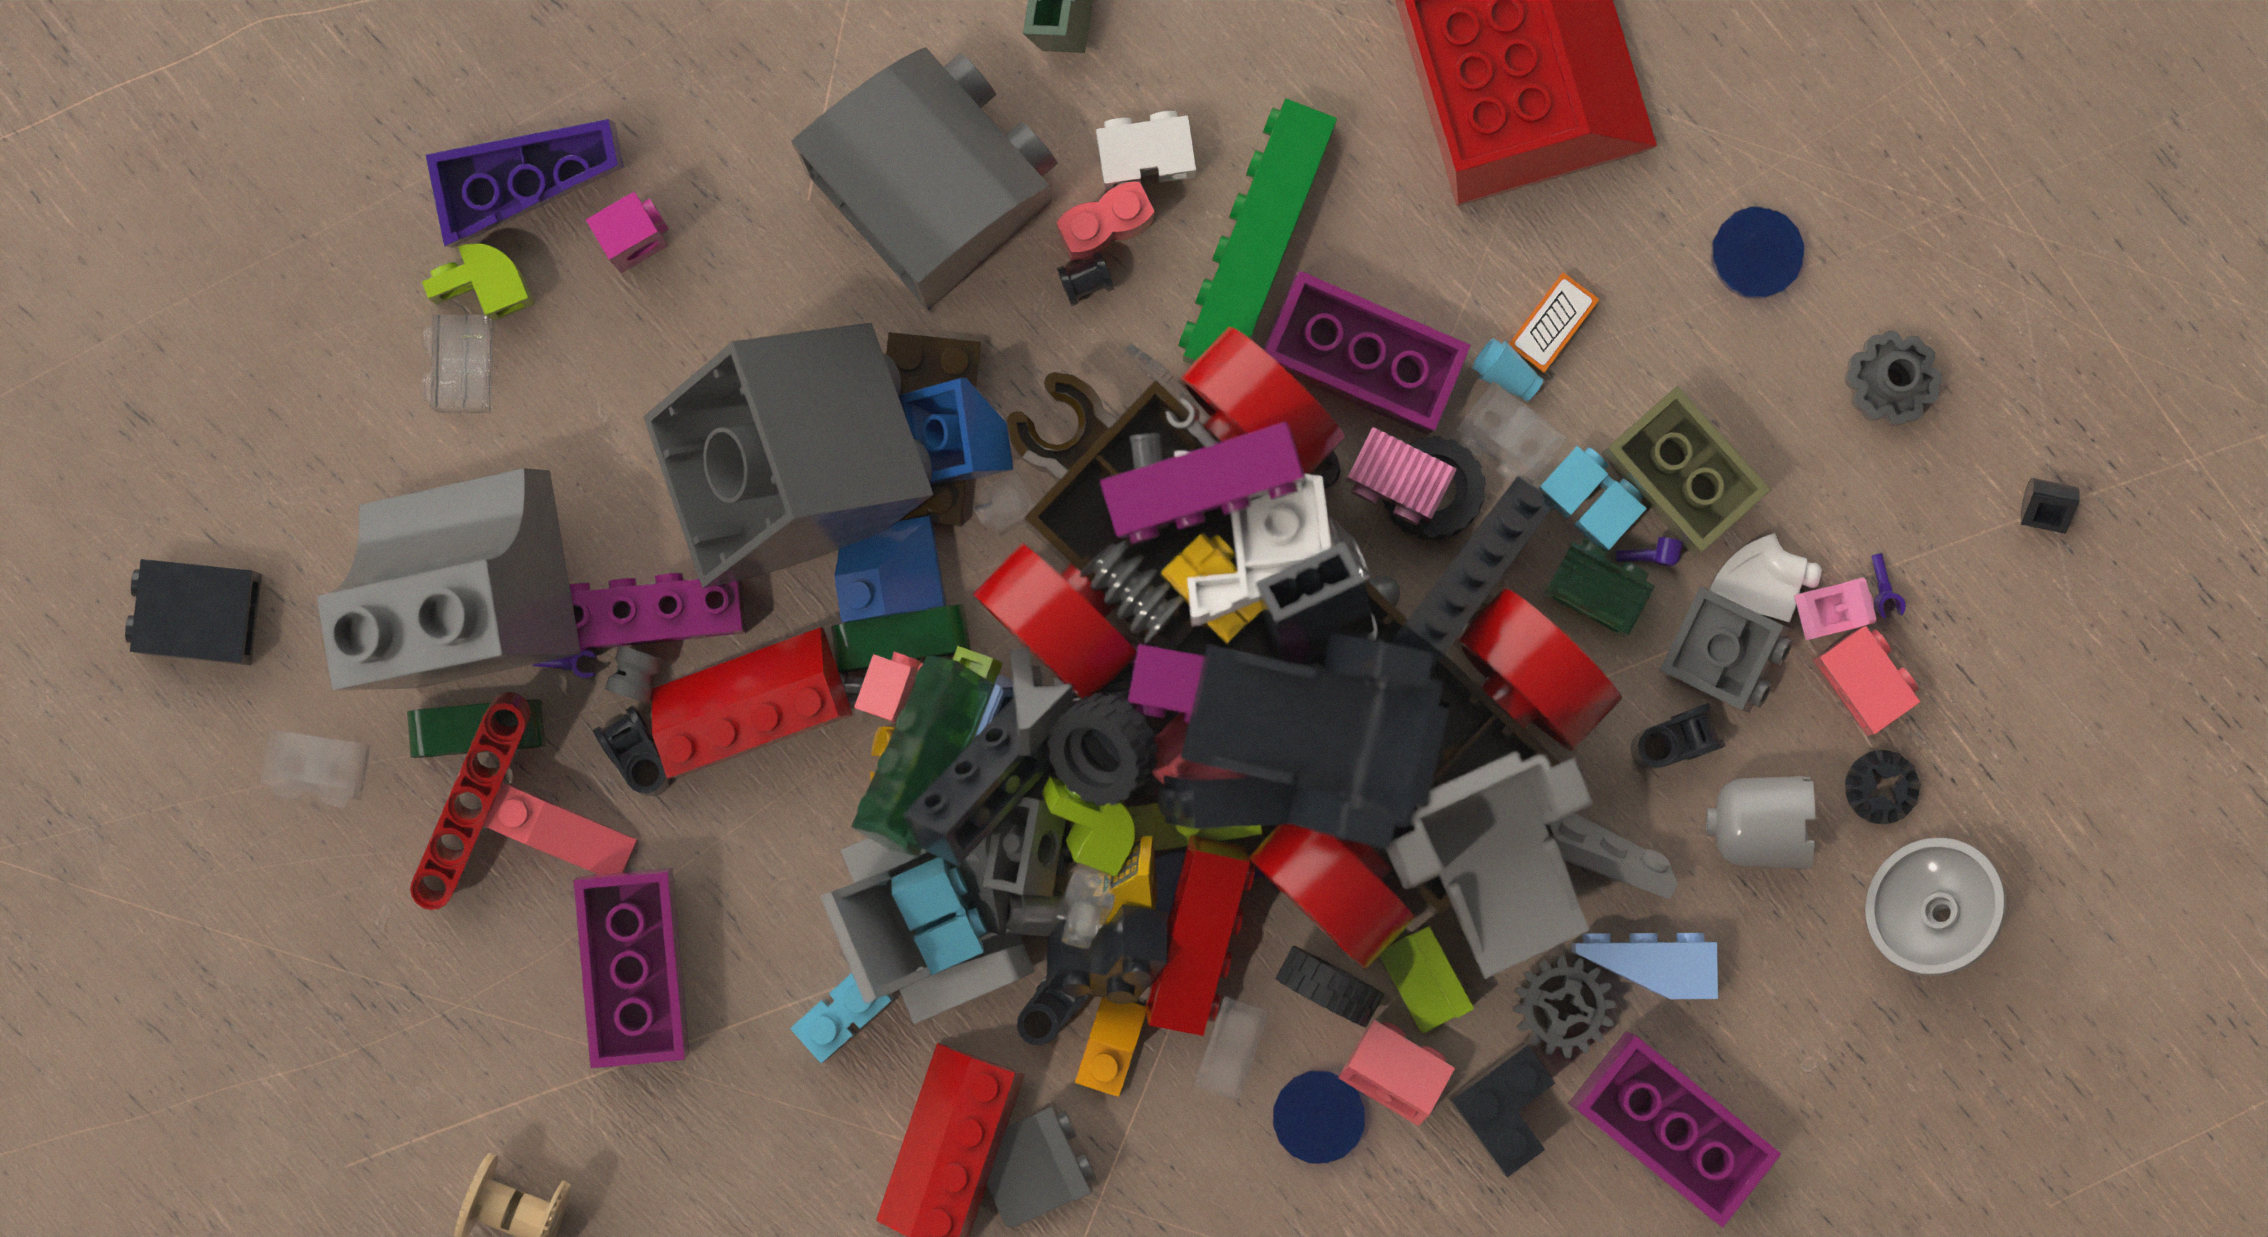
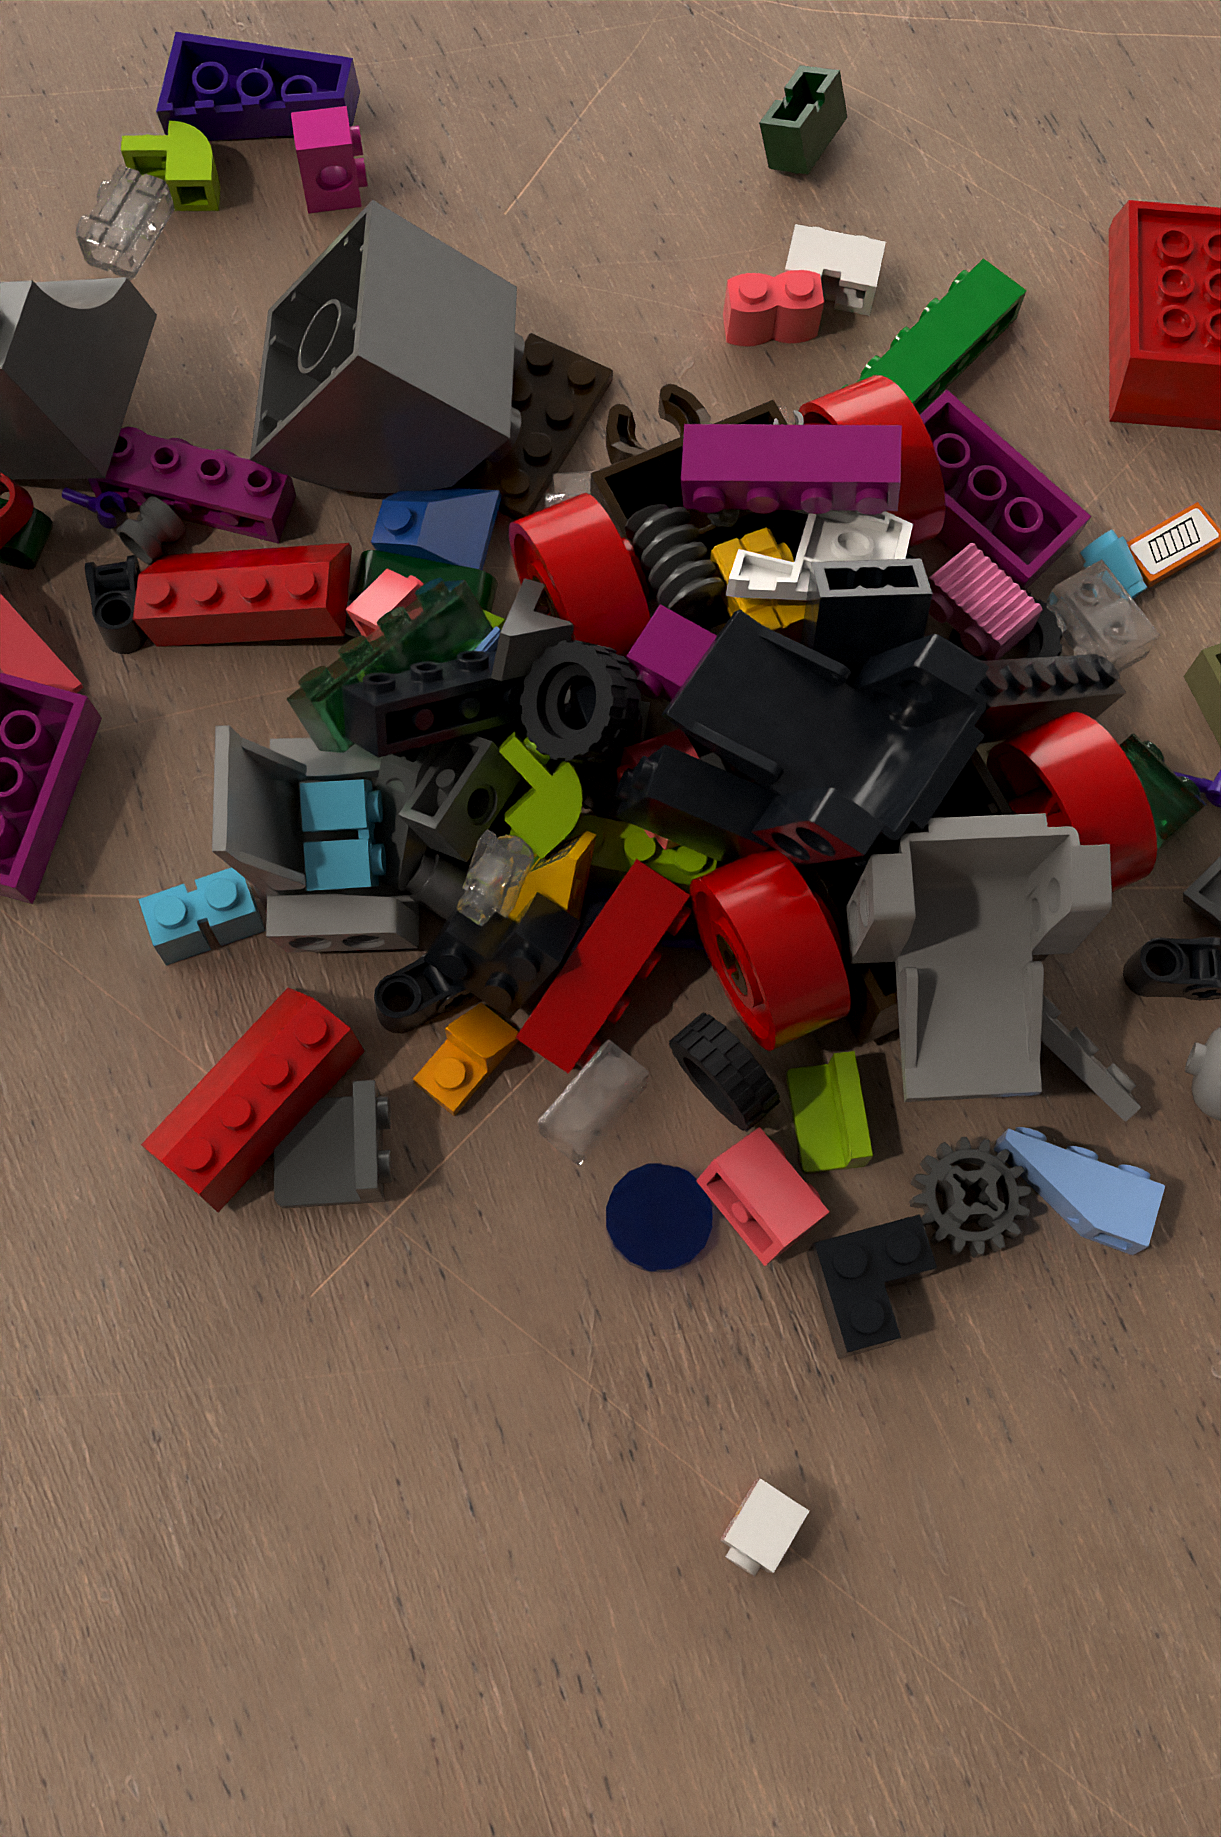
camera: 15 degrees right, 15 degrees down
(927, 170) = (616, 188): dark grey brick -> none
(958, 431) = (559, 419): blue slope -> none
(1085, 278) = (733, 350): black bush -> none
(1613, 510) = (1161, 695): medium azure piece -> none
(1674, 1128) = (1055, 1377): magenta brick -> none

